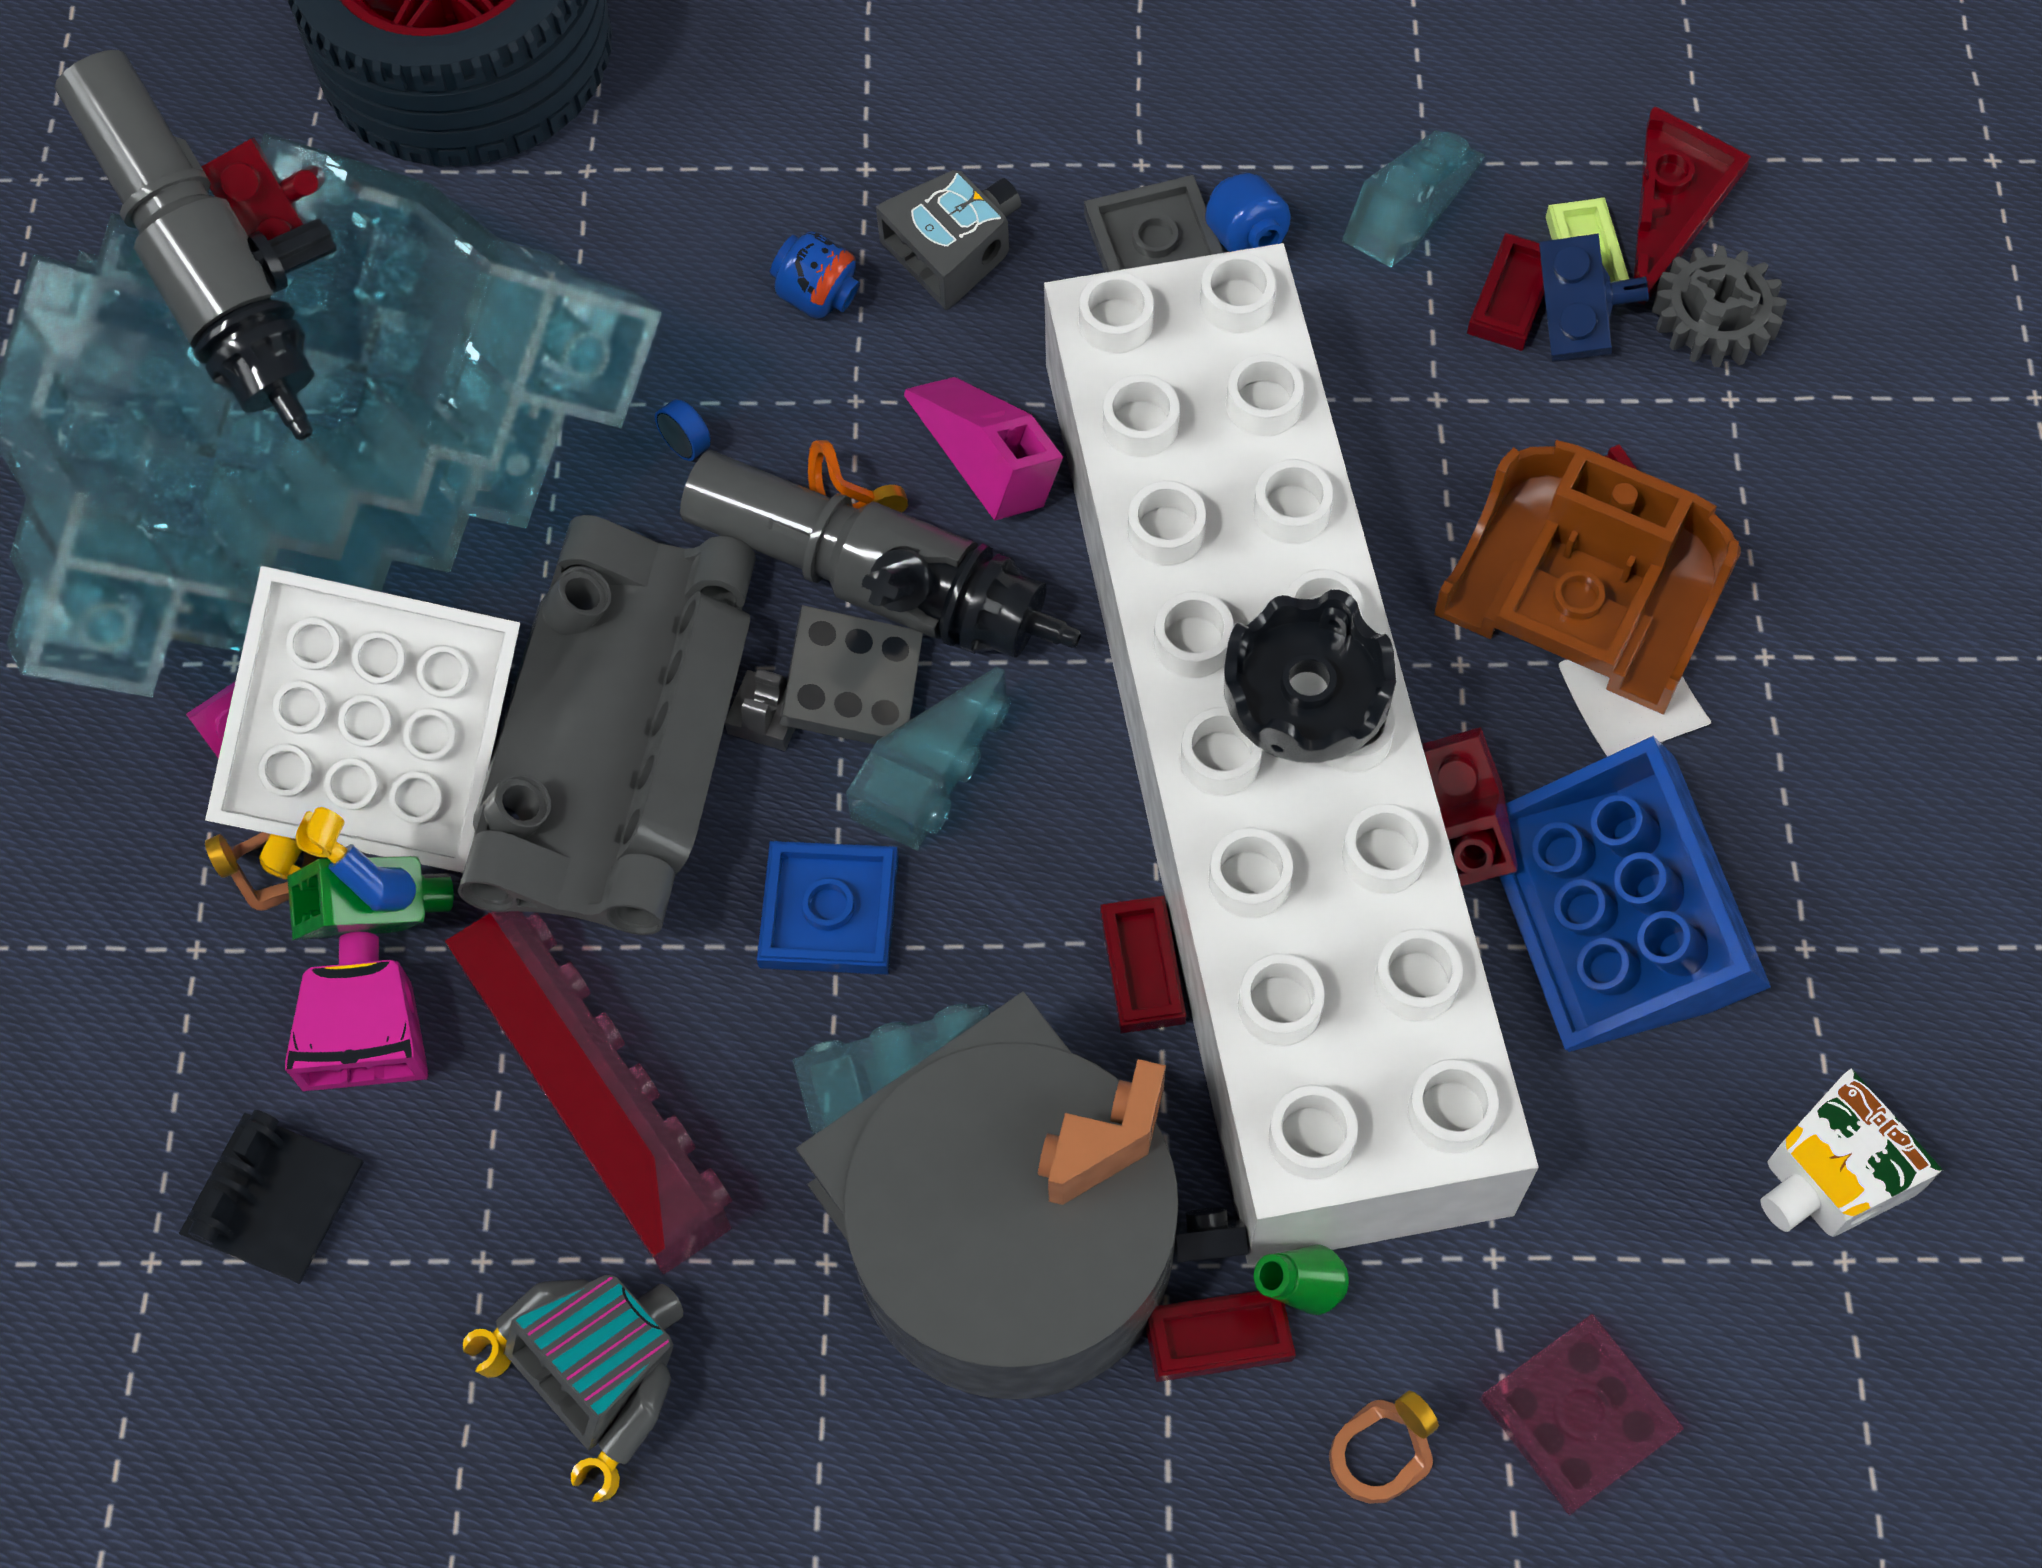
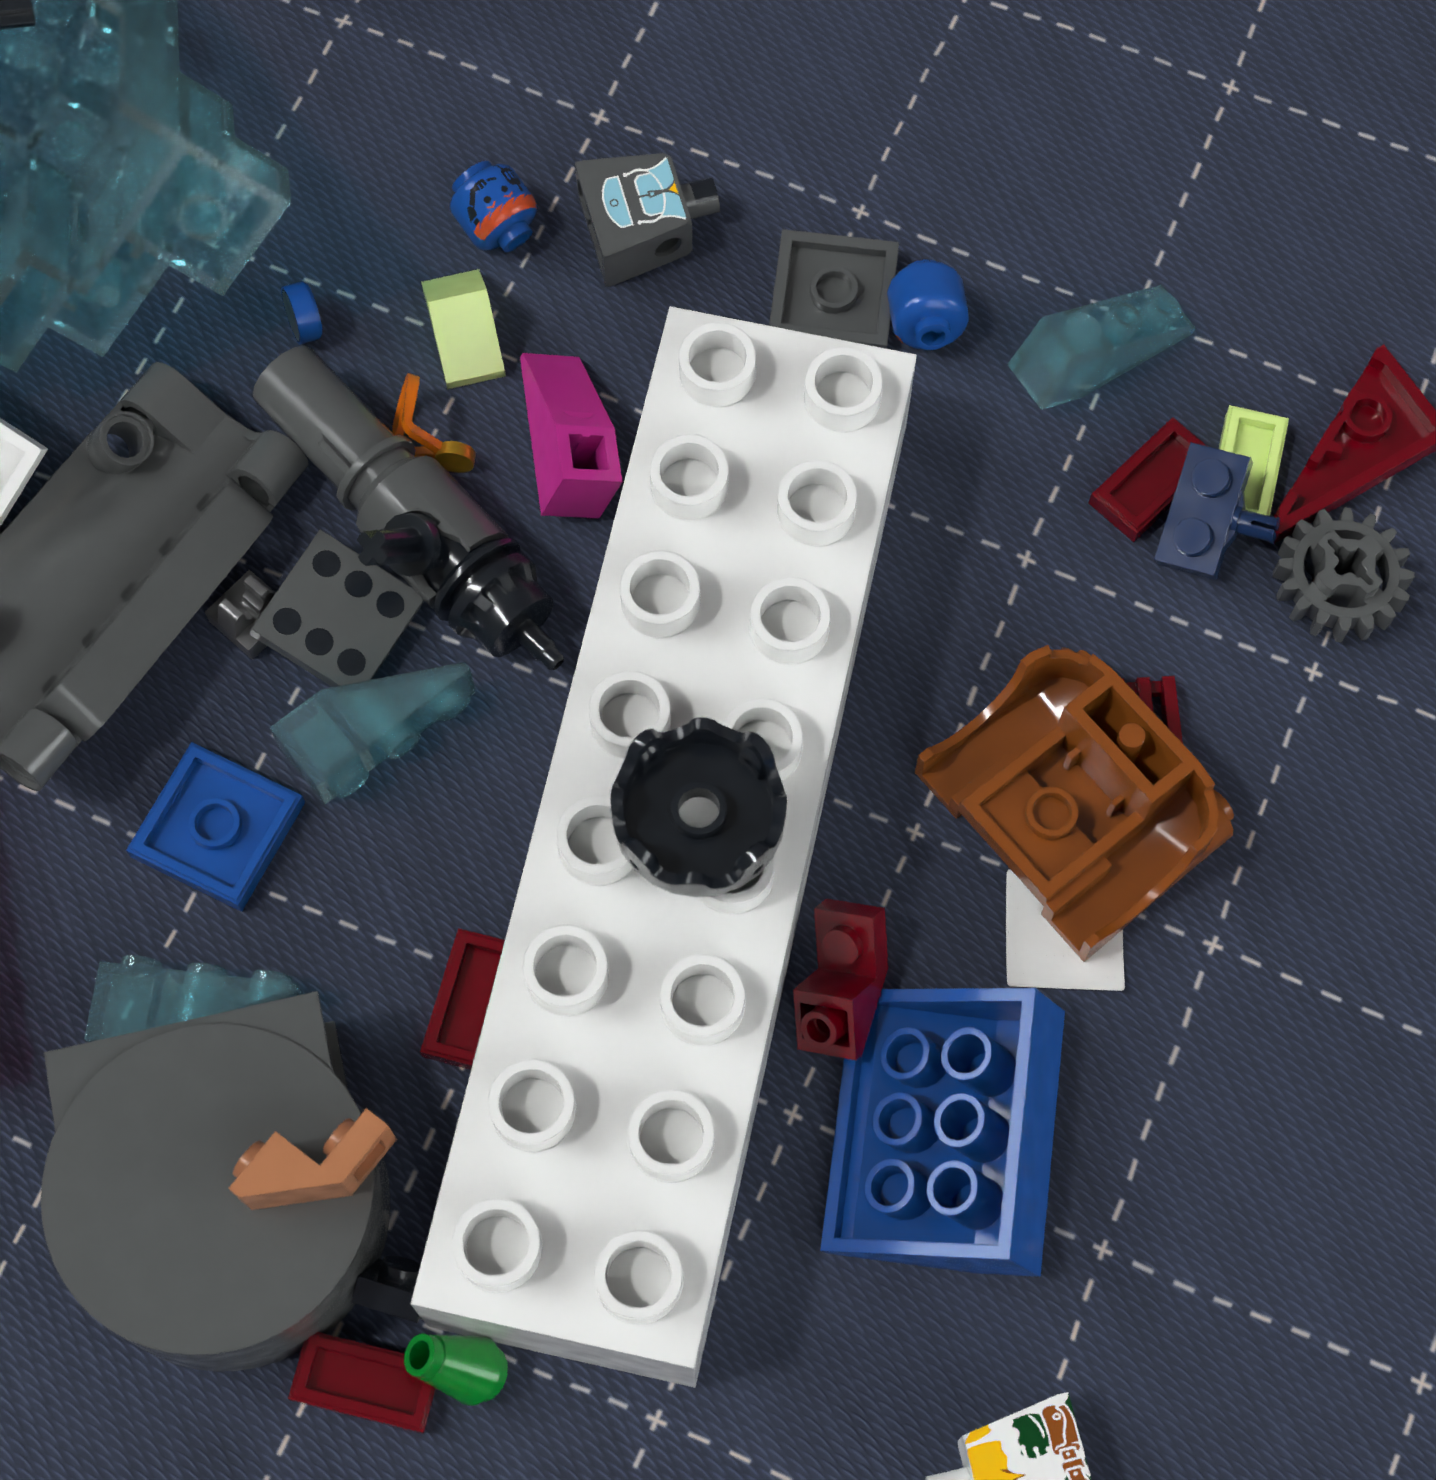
camera: 20 degrees right, 5 degrees up
(838, 388) = (464, 328): none -> yellowish green slope

